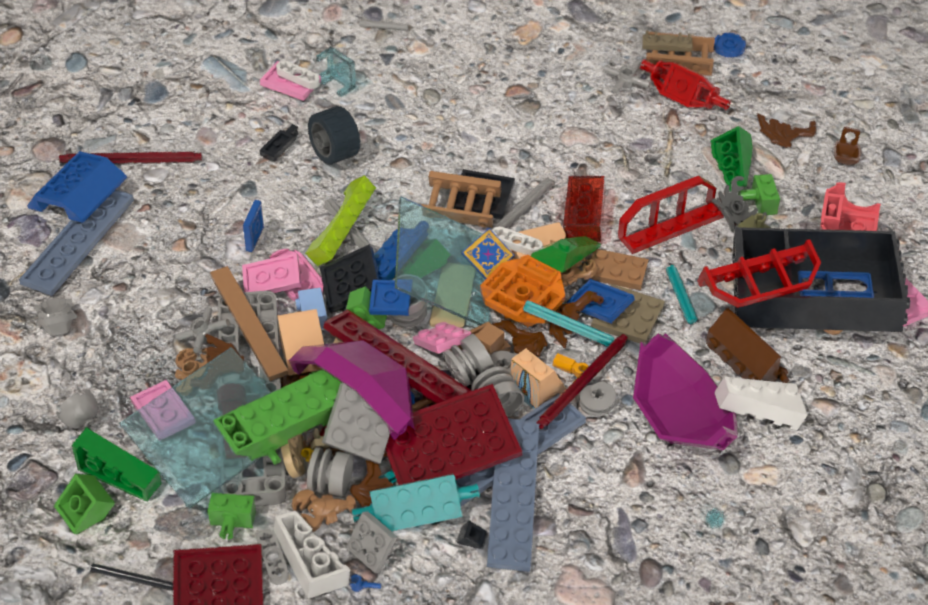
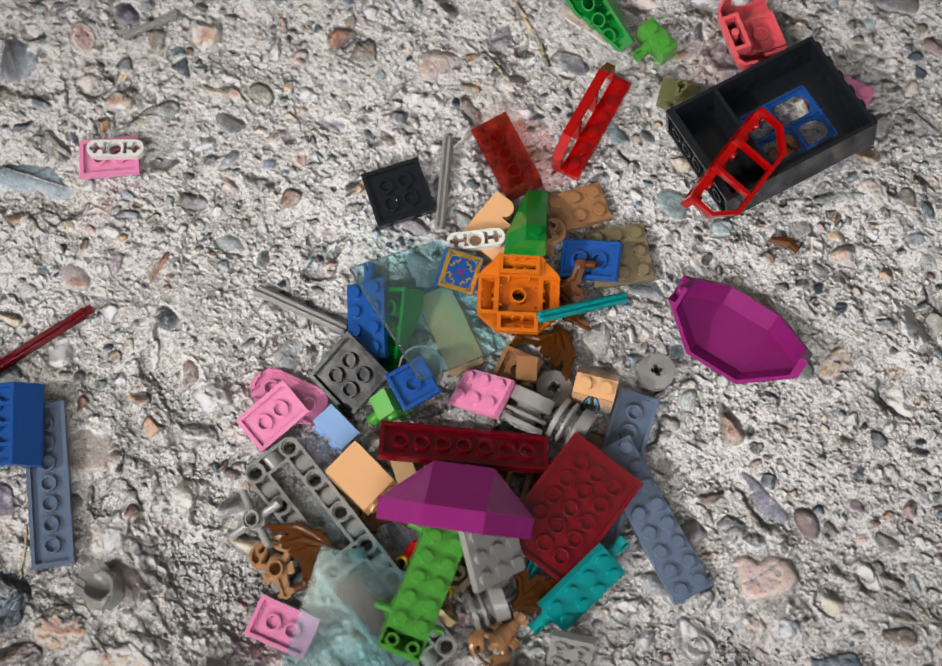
camera: 30 degrees left, 25 degrees up
(249, 323) = (296, 488): medium nougat tile -> none
(253, 225) = (214, 369): blue tile -> none
(279, 143) = (158, 246): black hinge -> none
(331, 238) = (298, 348): lime arch -> none
(334, 135) = (214, 212): black wheel -> none
(338, 68) = (155, 117): clear light blue panel -> none
(466, 184) = (390, 196): medium nougat fence -> none
(471, 535) = (641, 582): black slope -> none
(569, 365) = (606, 348): light orange bar -> none
(574, 389) = (632, 361): dark red piece -> none
(681, 294) = (652, 205): teal axle -> none
(715, 518) = (827, 436): clear light blue plate -> none
(733, 206) = (638, 74): dark grey animal -> none
(742, 348) = (749, 244): reddish brown slope -> none
(762, 400) = (804, 288): white wedge -> none

